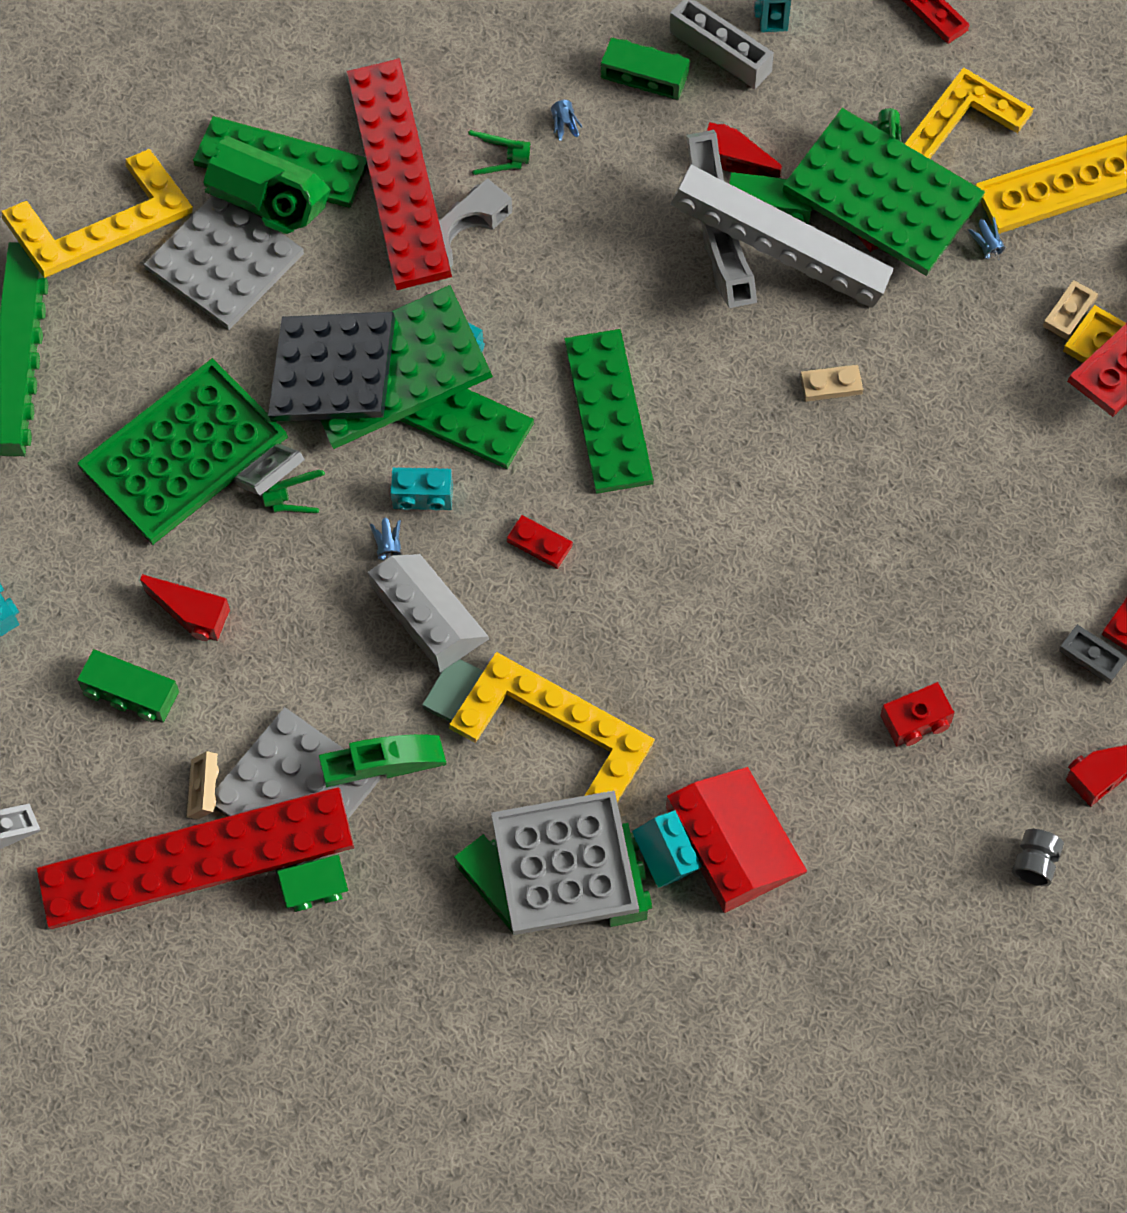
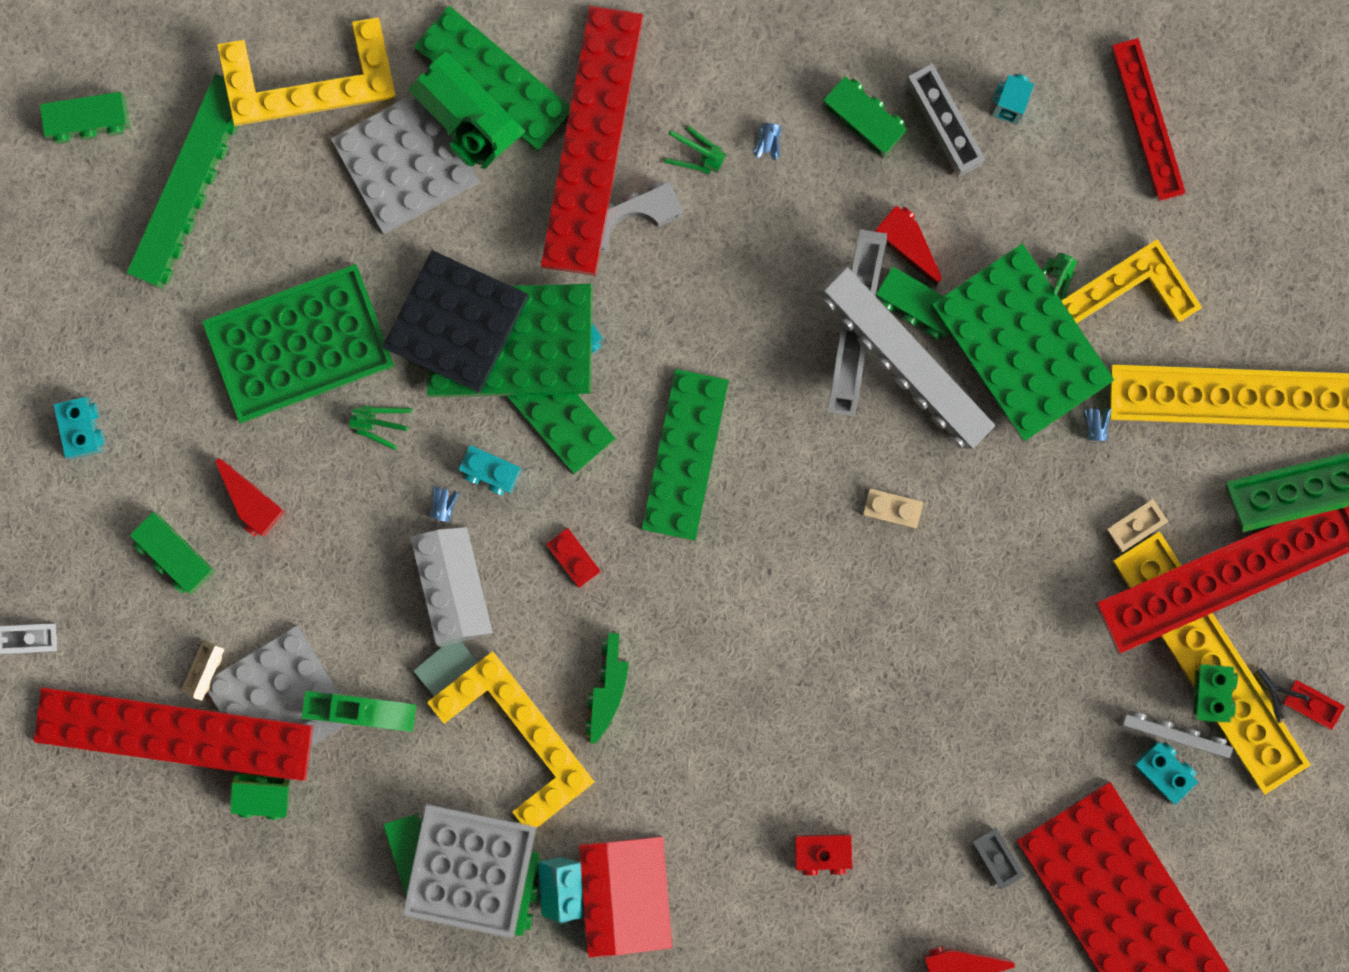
camera: 20 degrees right, 20 degrees up
(268, 469) = (364, 398): light grey plate -> none
(630, 645) = (606, 701): none -> green slope

